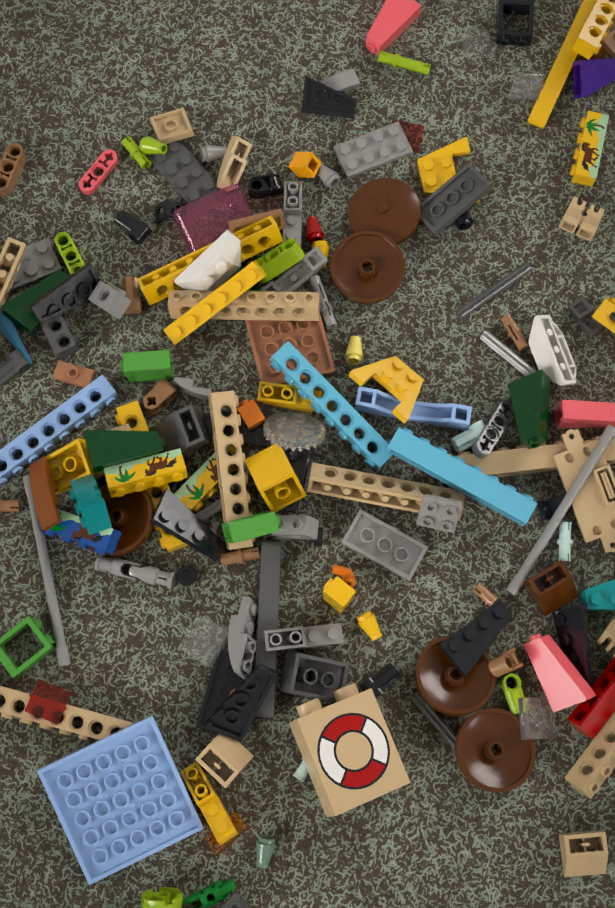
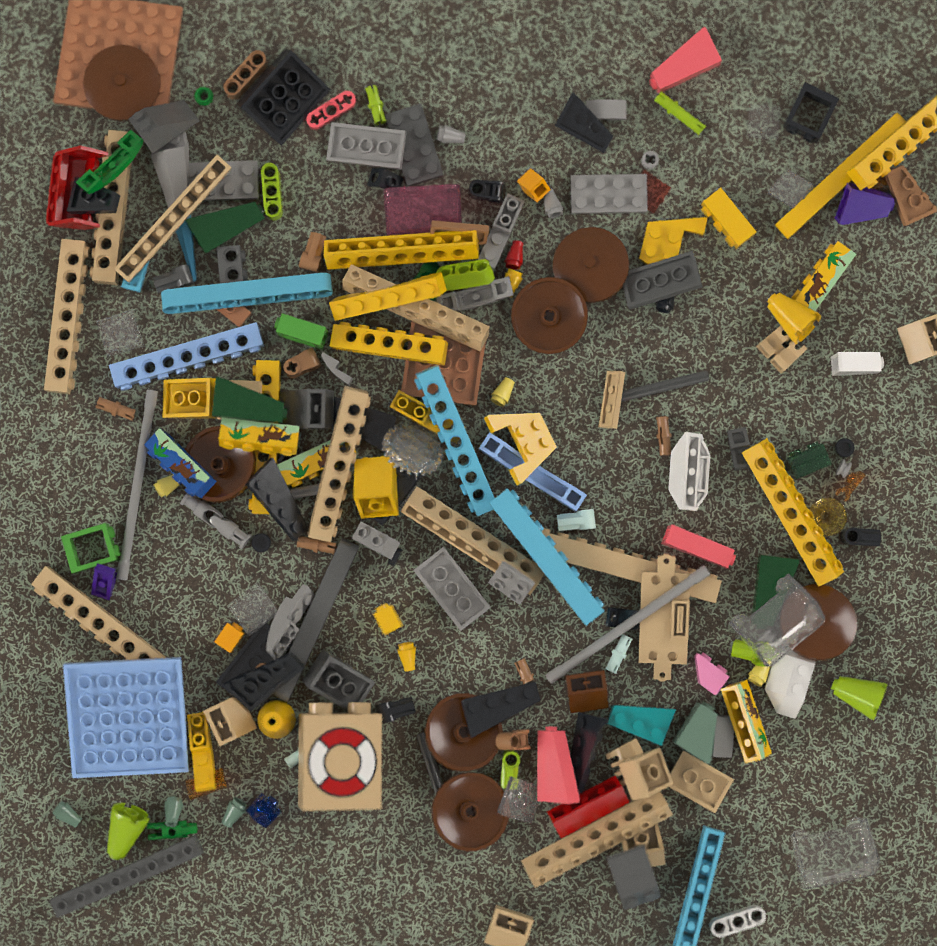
camera: 25 degrees right, 10 degrees up
(44, 493) = (160, 415): dark orange slope -> none
(47, 670) = (103, 581): none -> dark purple slope
(48, 701) = (94, 607): clear red piece -> none
(50, 175) = (283, 96): none -> black slope
(67, 294) = (259, 229): black wing -> none
(75, 558) = (166, 486): none -> light yellow cone
(82, 353) = (246, 293): none -> medium azure beam
(89, 504) = (196, 445): teal wedge -> none
(110, 299) = (291, 250): light grey brick -> none
(136, 230) = (343, 185): black piece -> none
(142, 187) = (366, 145): none -> light grey plate
(152, 146) = (391, 106): lime cone -> none
(172, 126) = (420, 91): tan plate -> none
(192, 677) = (230, 636): none -> light orange brick
(203, 874) = (173, 809): none -> sand green cone
(213, 265) = (400, 259): white wedge -> none
(233, 162) = (464, 156): tan slope -> none
(243, 350) = (436, 355): none -> yellow brick
(250, 413) = (378, 417): orange brick -> none
(251, 526) = (333, 526): bright green window -> none
(279, 742) = (284, 717): none -> yellow cone
(294, 835) = (264, 810): none -> clear blue brick
(303, 637) = (342, 643): light grey slope -> none
(325, 308) = (493, 338): light grey pin -> none
(346, 574) = (406, 601): orange arm -> none
(395, 115) = (649, 154): none -> light grey bush
(454, 318) = (612, 399): none -> tan tile
(485, 130) = (727, 218): none -> yellow brick
(493, 428) = (600, 524): dark grey beam -> none
(507, 353) = (649, 458): light grey axle -> none
(531, 407) = (641, 518): dark green slope -> none
(581, 184) = (793, 316): none -> yellow cone

